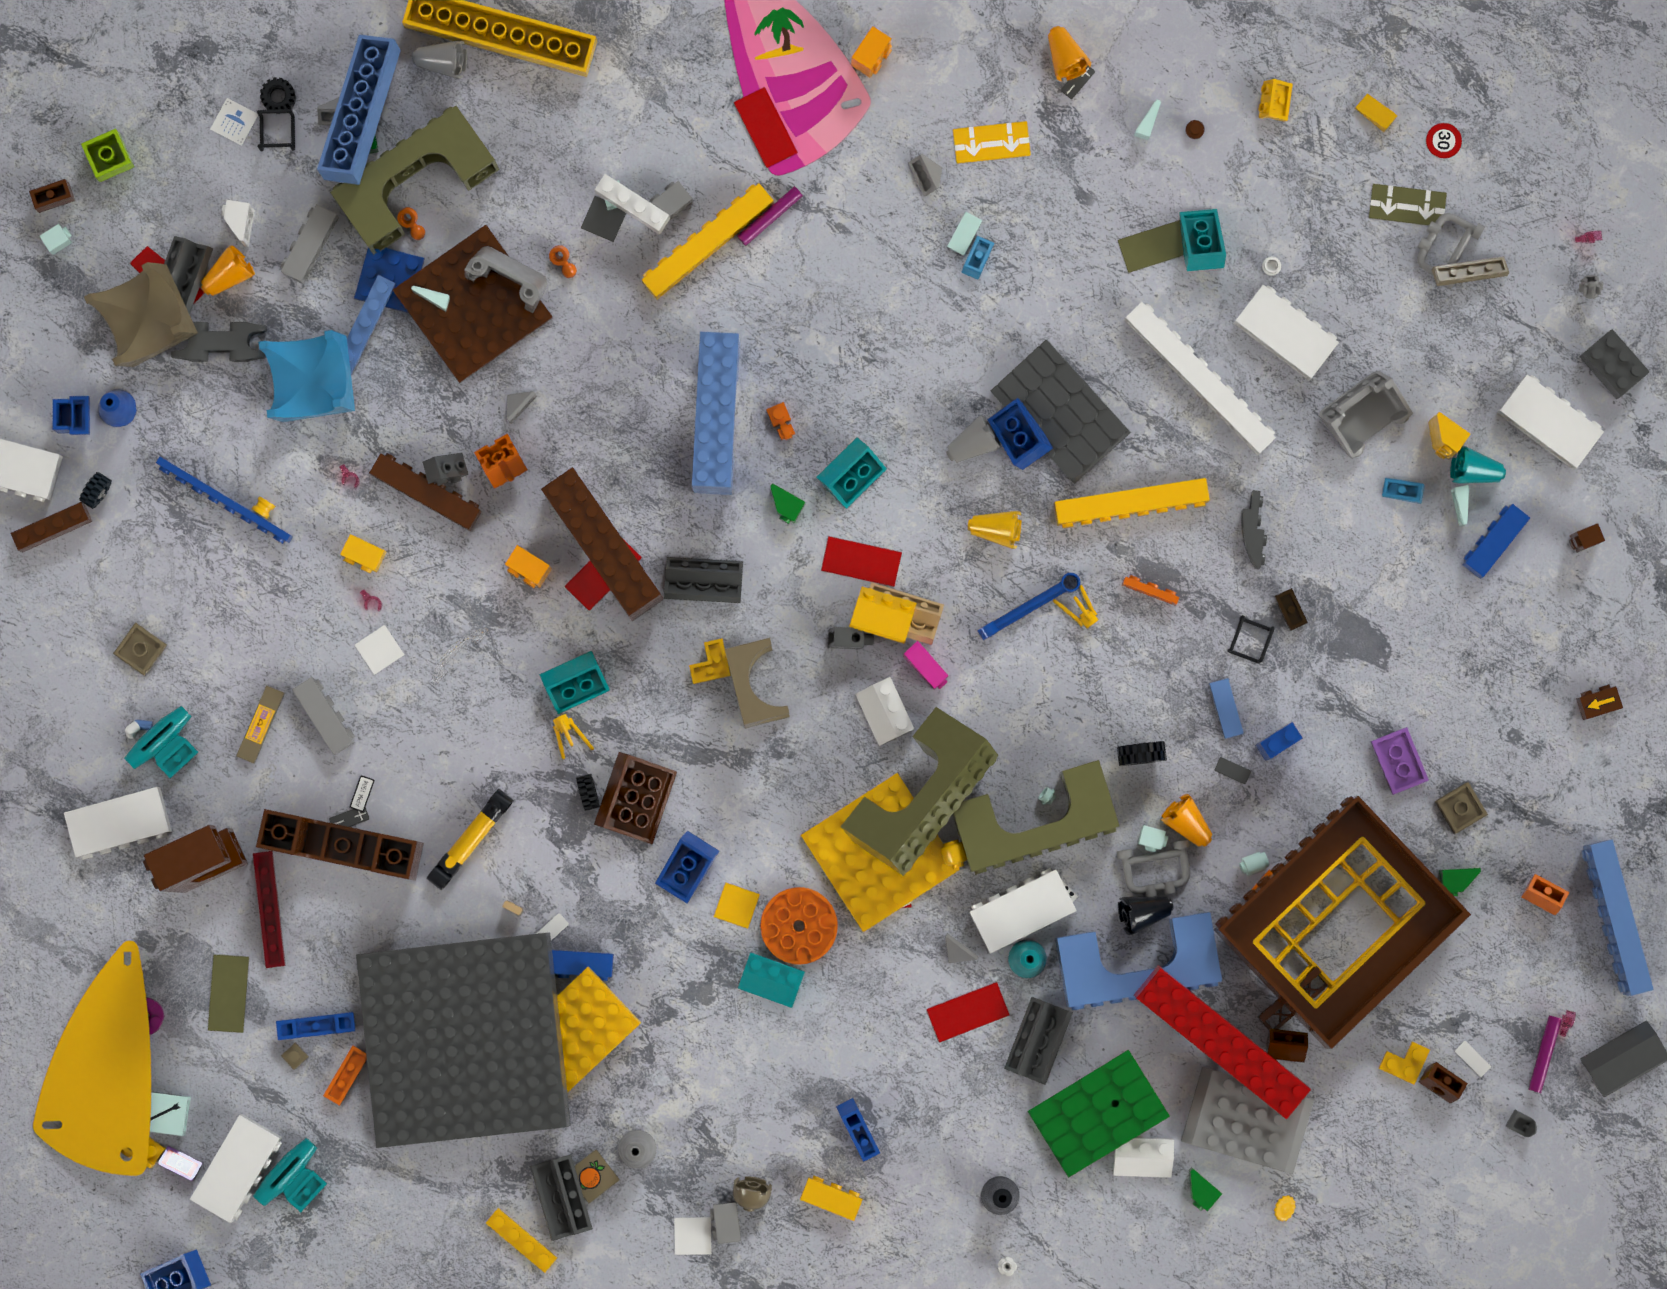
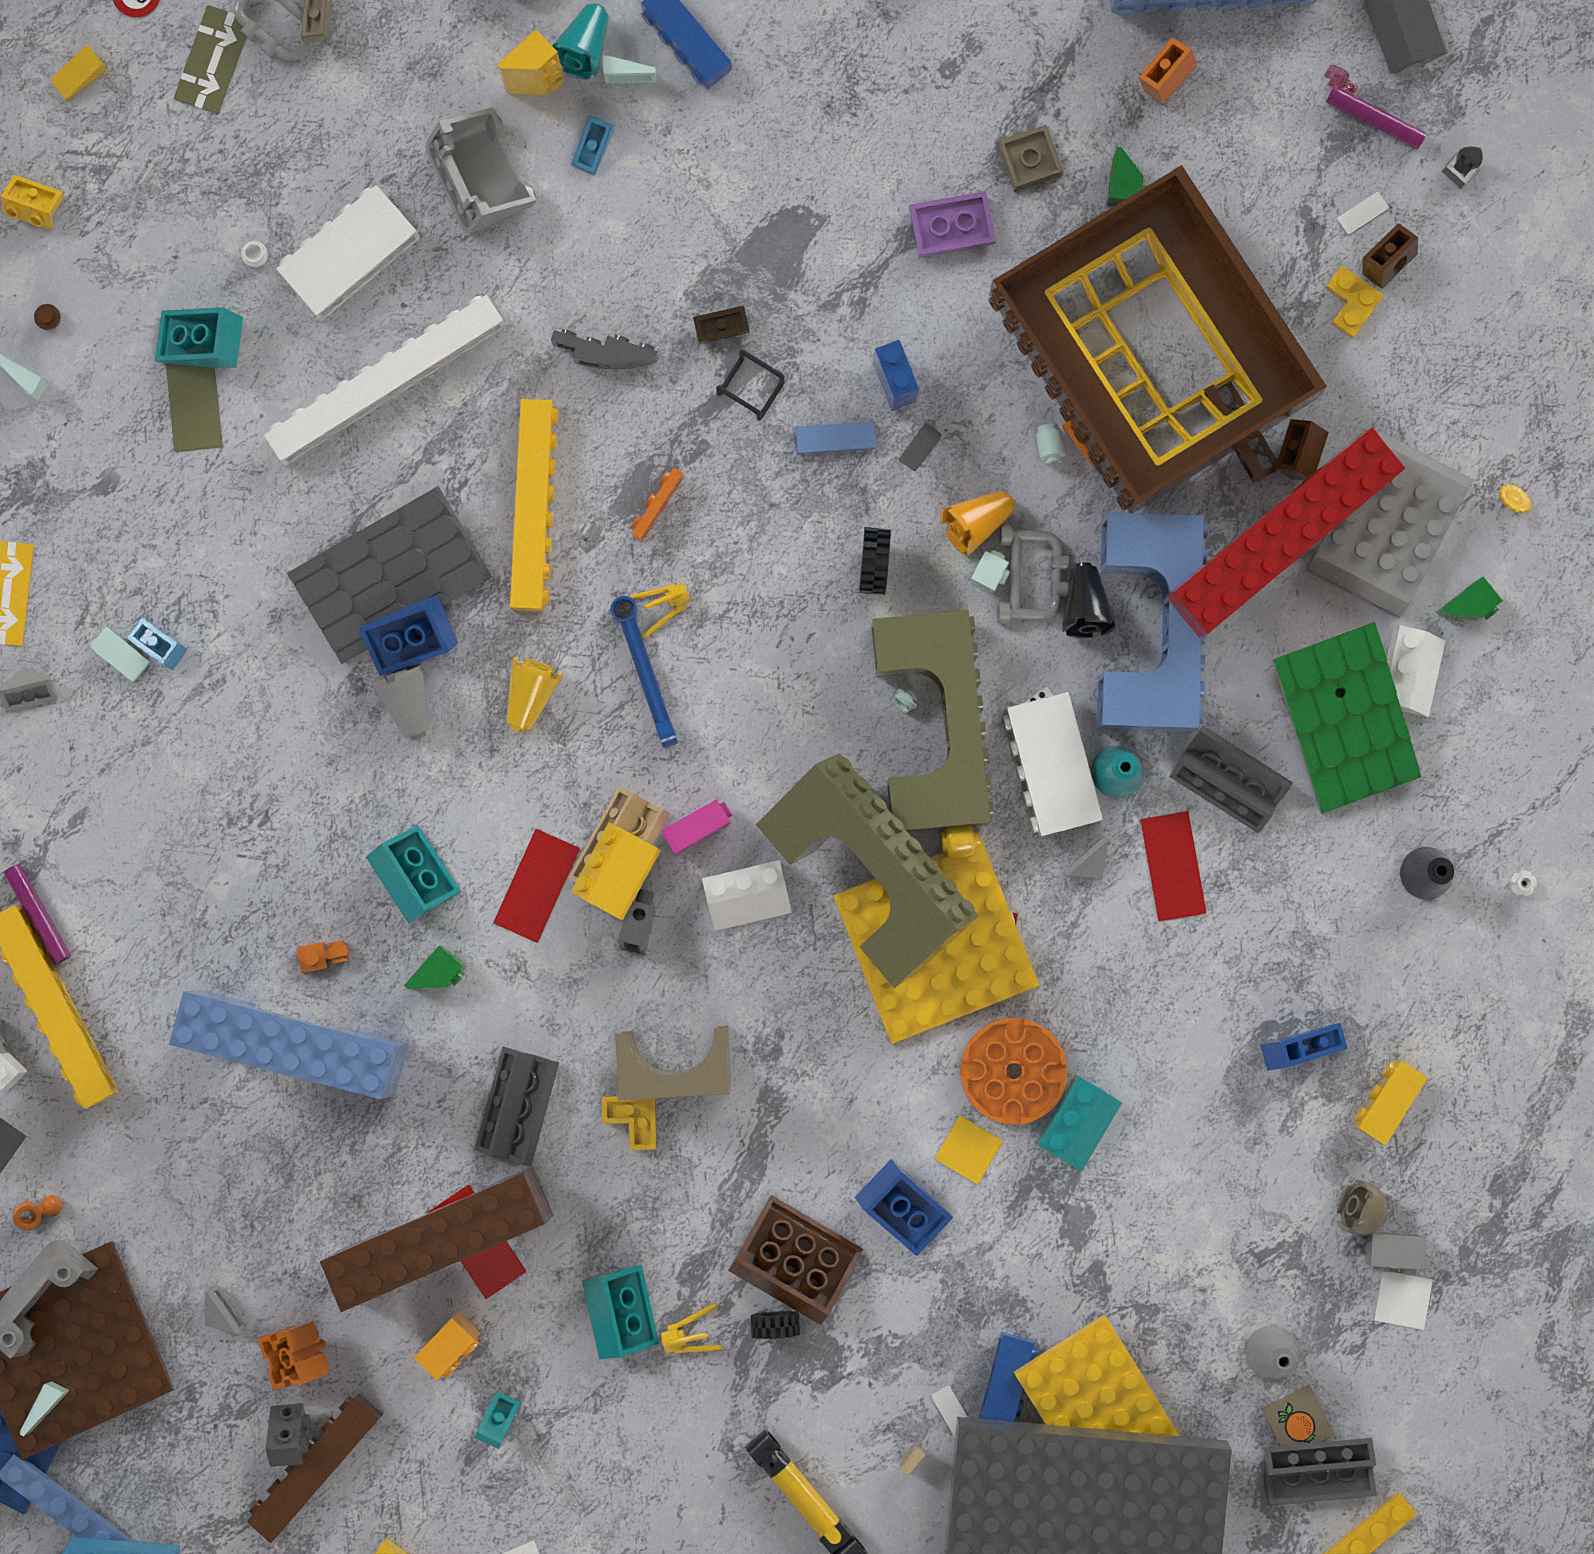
camera: 75 degrees left, 0 degrees up
(483, 612) = (497, 1420): none -> teal slope

